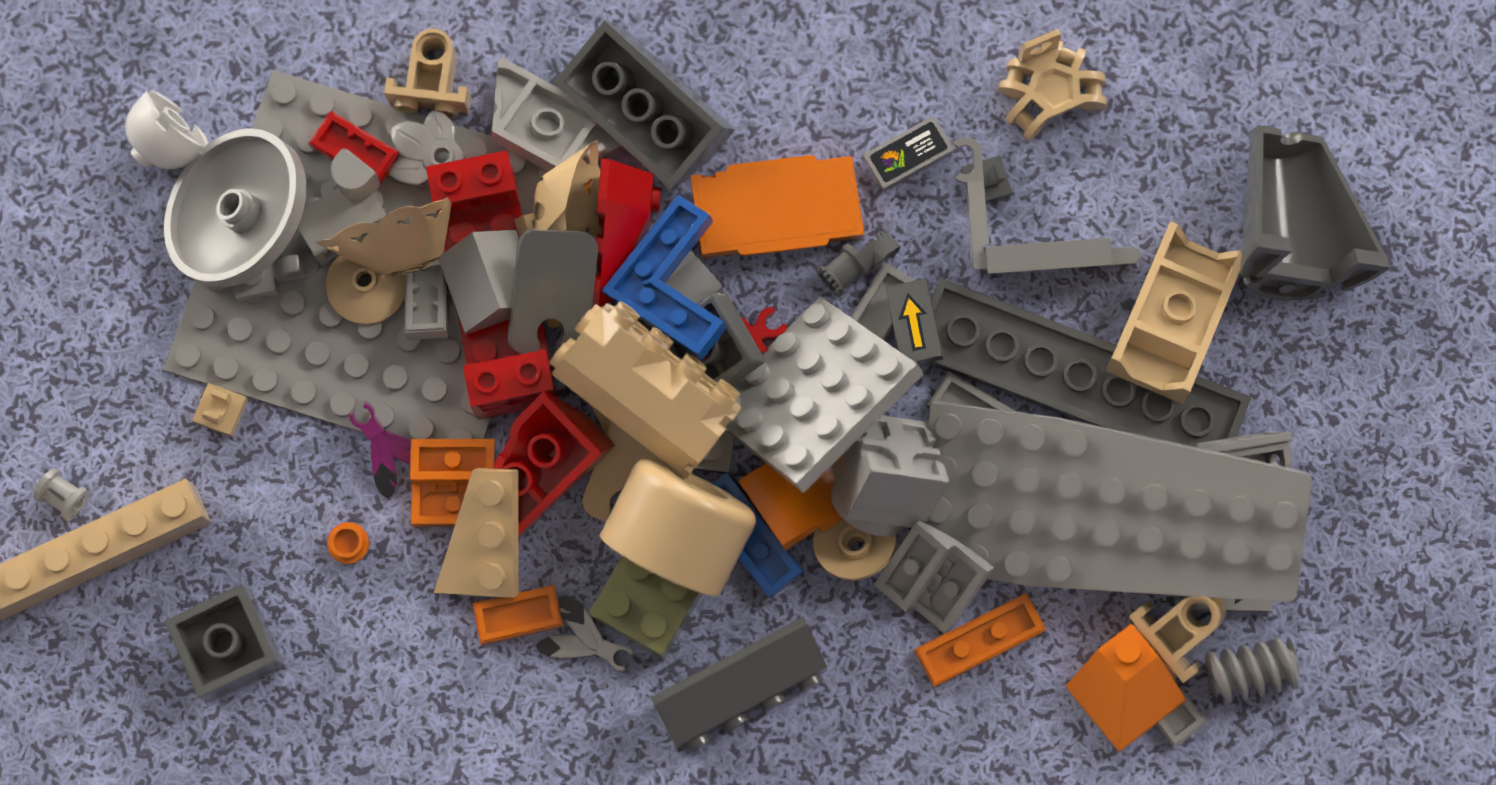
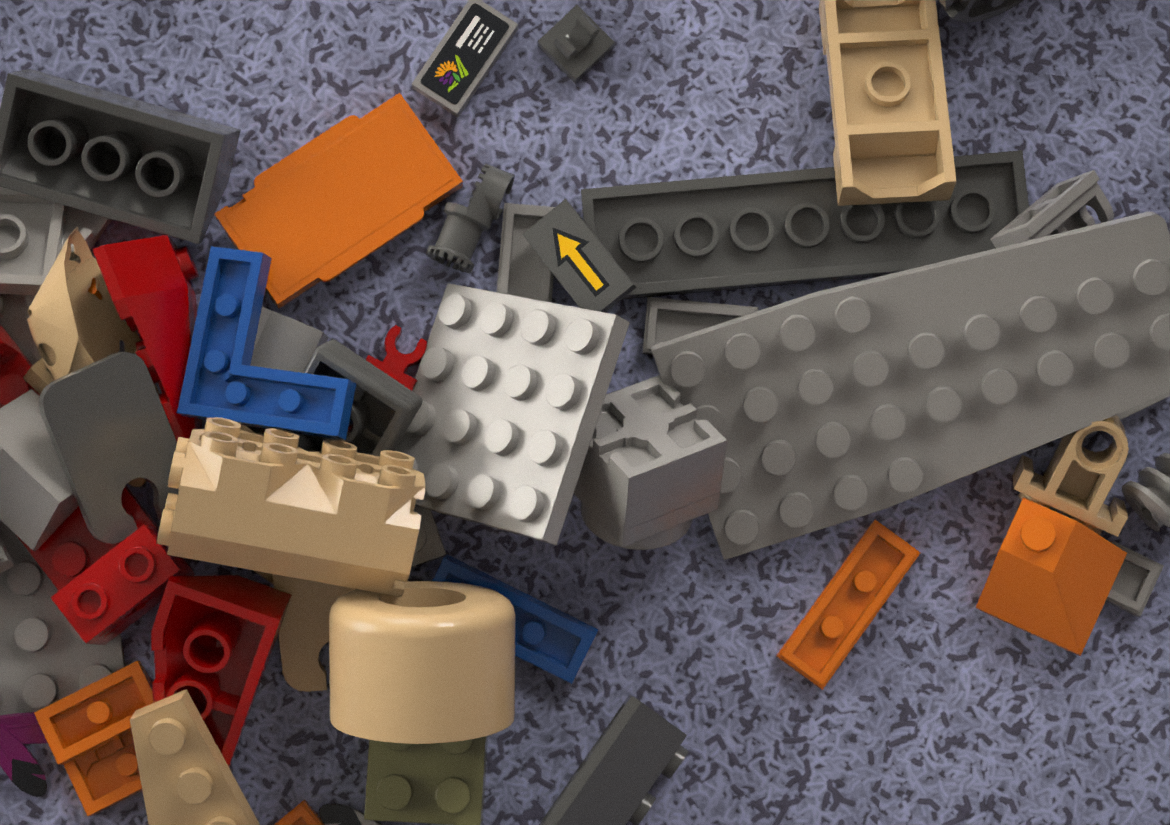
camera: 35 degrees left, 5 degrees up
(788, 510) = (538, 569): orange slope -> none
(836, 558) = (621, 589): tan dish -> none
(933, 576) = (757, 557): light grey slope -> none
(1027, 256) = (673, 111): light grey hinge -> none

